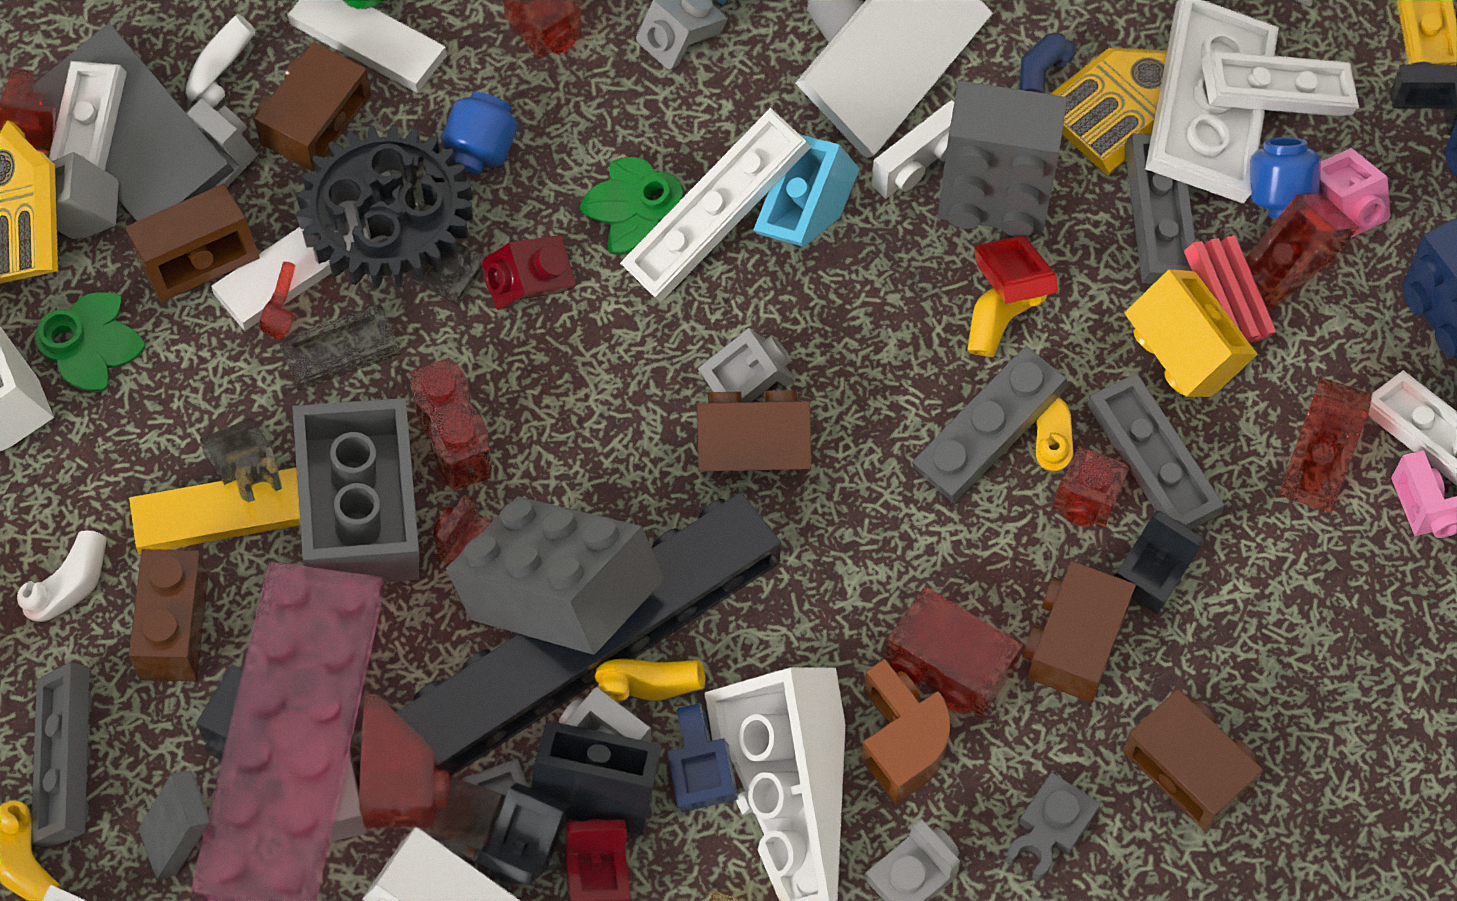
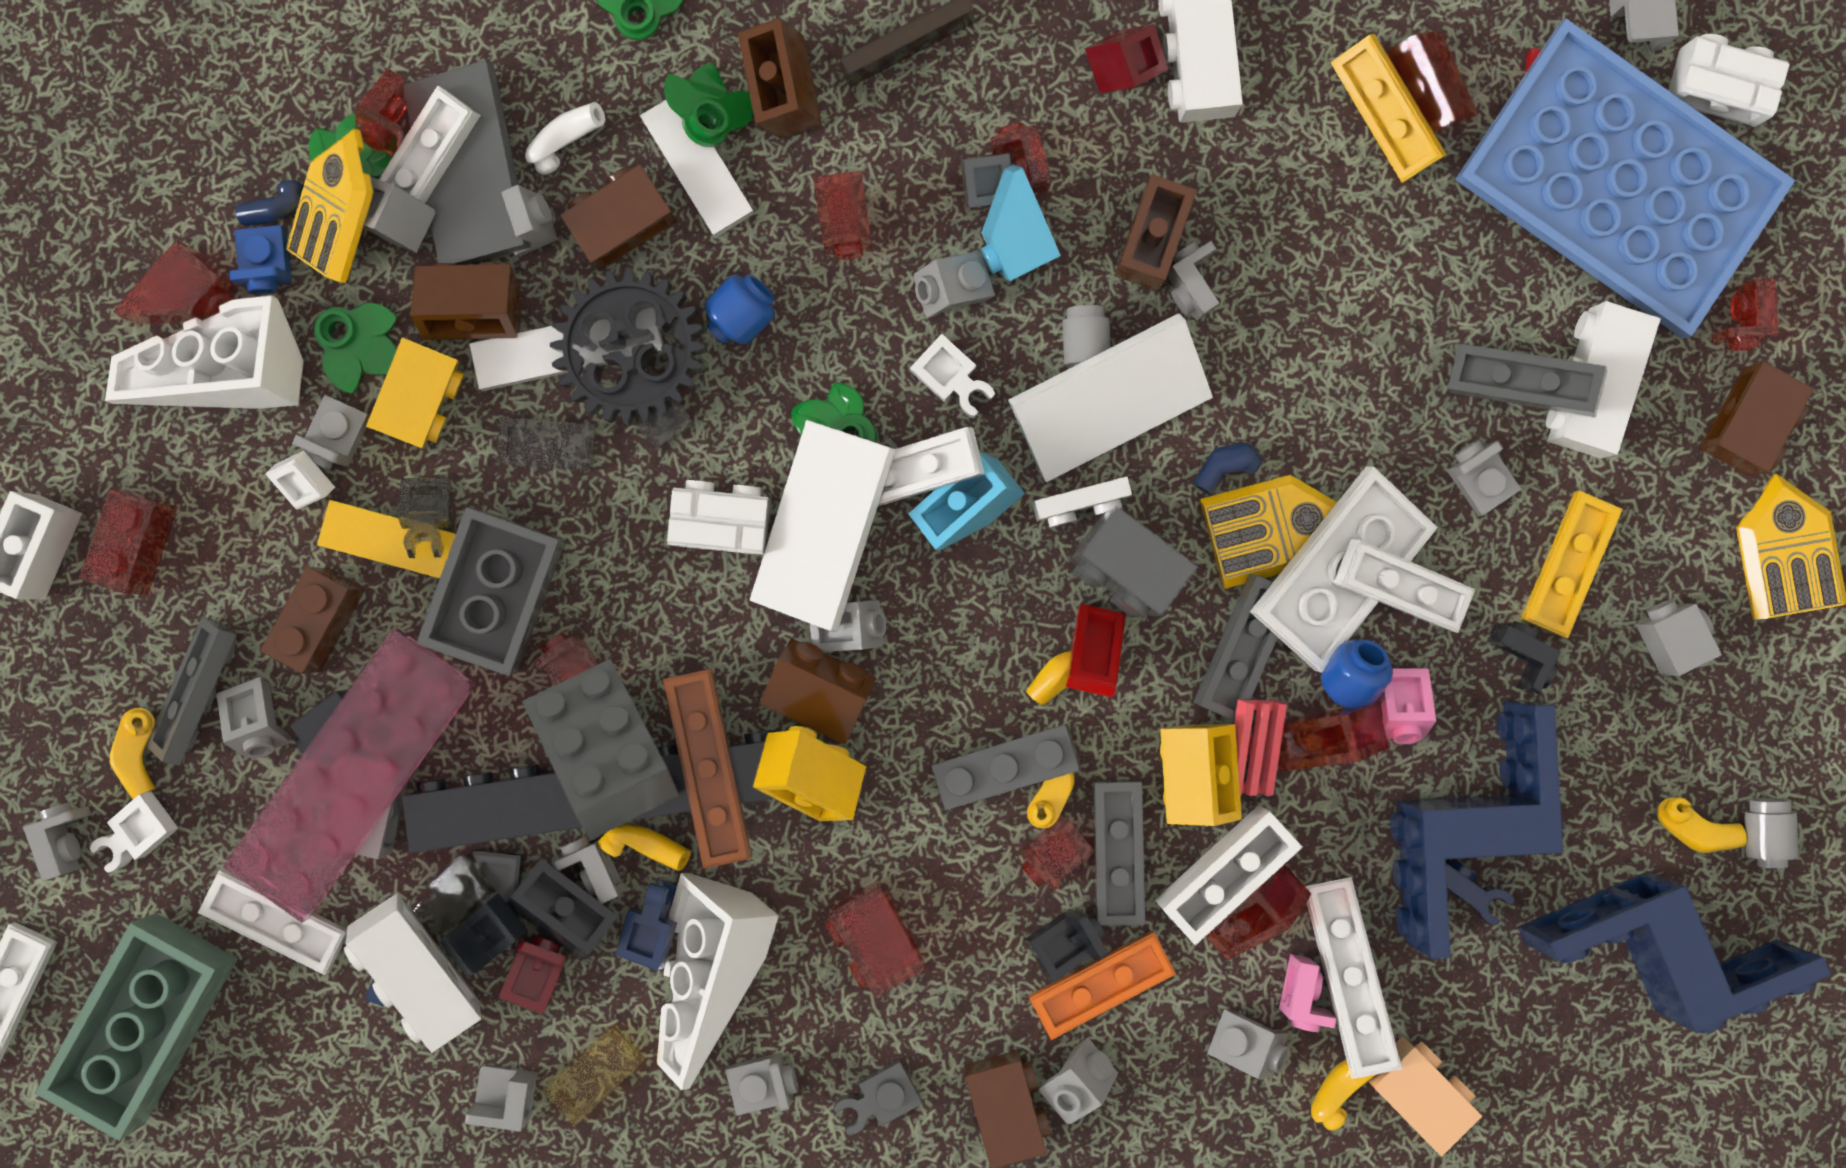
camera: 25 degrees right, 25 degrees up
(69, 584) = (256, 549): white arm -> none
(90, 486) = (300, 480): none -> white tile
(103, 434) = (333, 433): none -> light grey bracket
(142, 753) = (249, 719): none -> light grey bracket
(174, 824) = (241, 799): dark grey tile -> none
(177, 351) = (415, 393): none -> yellow brick
(275, 318) = (504, 399): clear red hand -> none
(397, 772) = (409, 849): clear red slope -> none
(451, 424) = (596, 549): clear red brick -> none
(528, 270) = (719, 456): dark red bracket -> none
(562, 329) = (719, 519): none -> white brick
(671, 280) = (822, 525): none -> white tile
(683, 550) = (707, 768): none -> dark orange tile
(721, 99) = (946, 371): none -> white plate
(792, 507) = (810, 775): none -> yellow brick
(914, 741) = (808, 995): dark orange brick -> none
(1080, 630) = (978, 968): reddish brown brick -> none
(1217, 596) = (1102, 985): none -> orange tile
(1253, 694) = (1080, 1083): none -> light grey bracket
(1276, 413) = (1228, 874): none -> white brick
(1406, 576) = (1249, 1045): none -> light grey bracket

